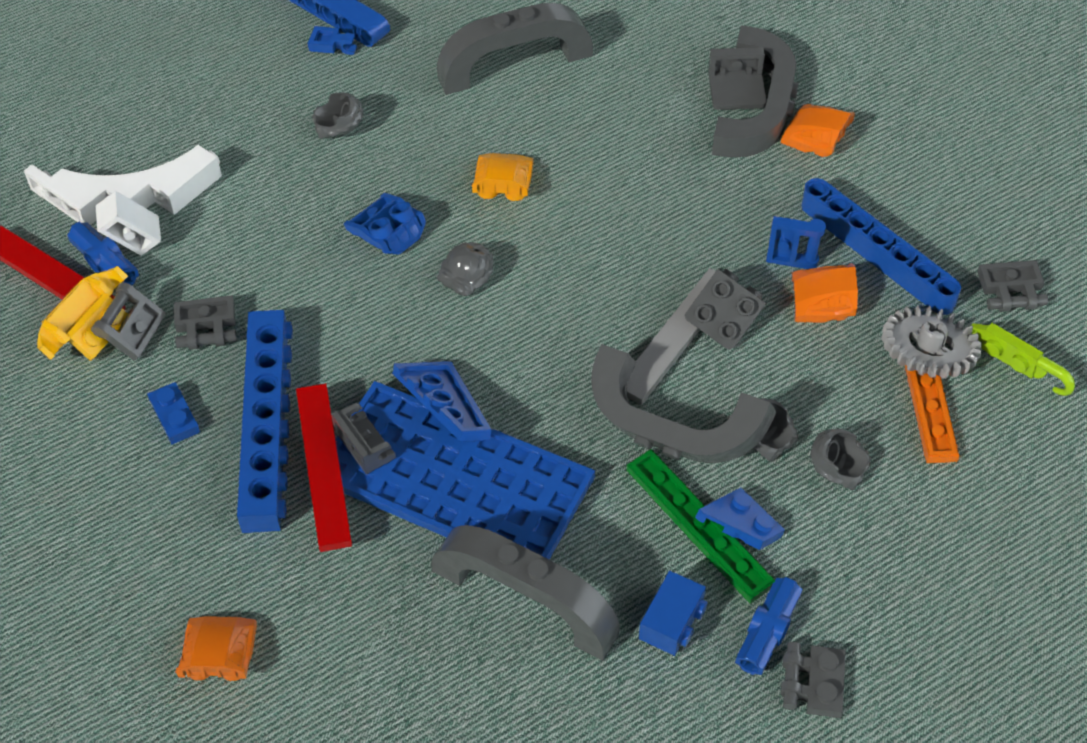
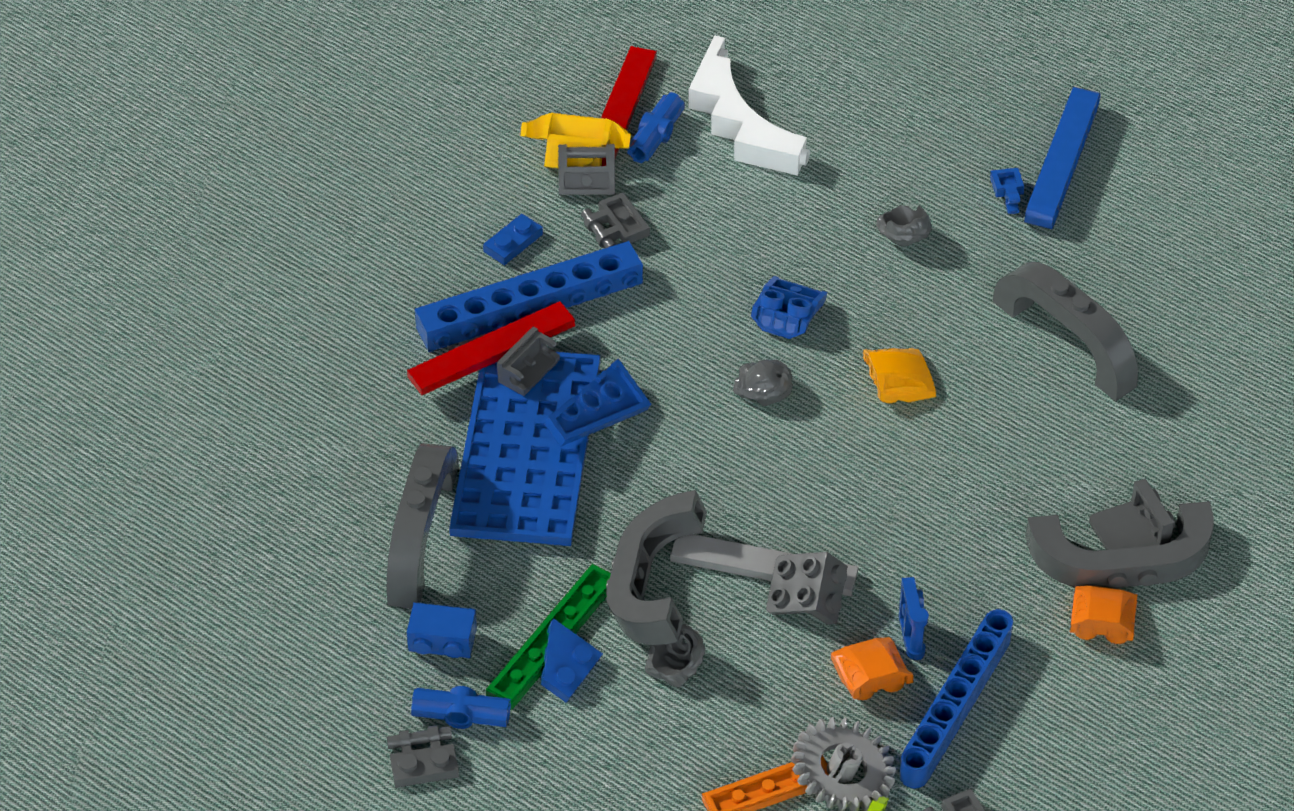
camera: 70 degrees right, 5 degrees down
(128, 223) = (687, 125): white brick -> none
(217, 648) = (299, 347): orange slope -> none
(840, 457) = (665, 723): dark grey hair -> none

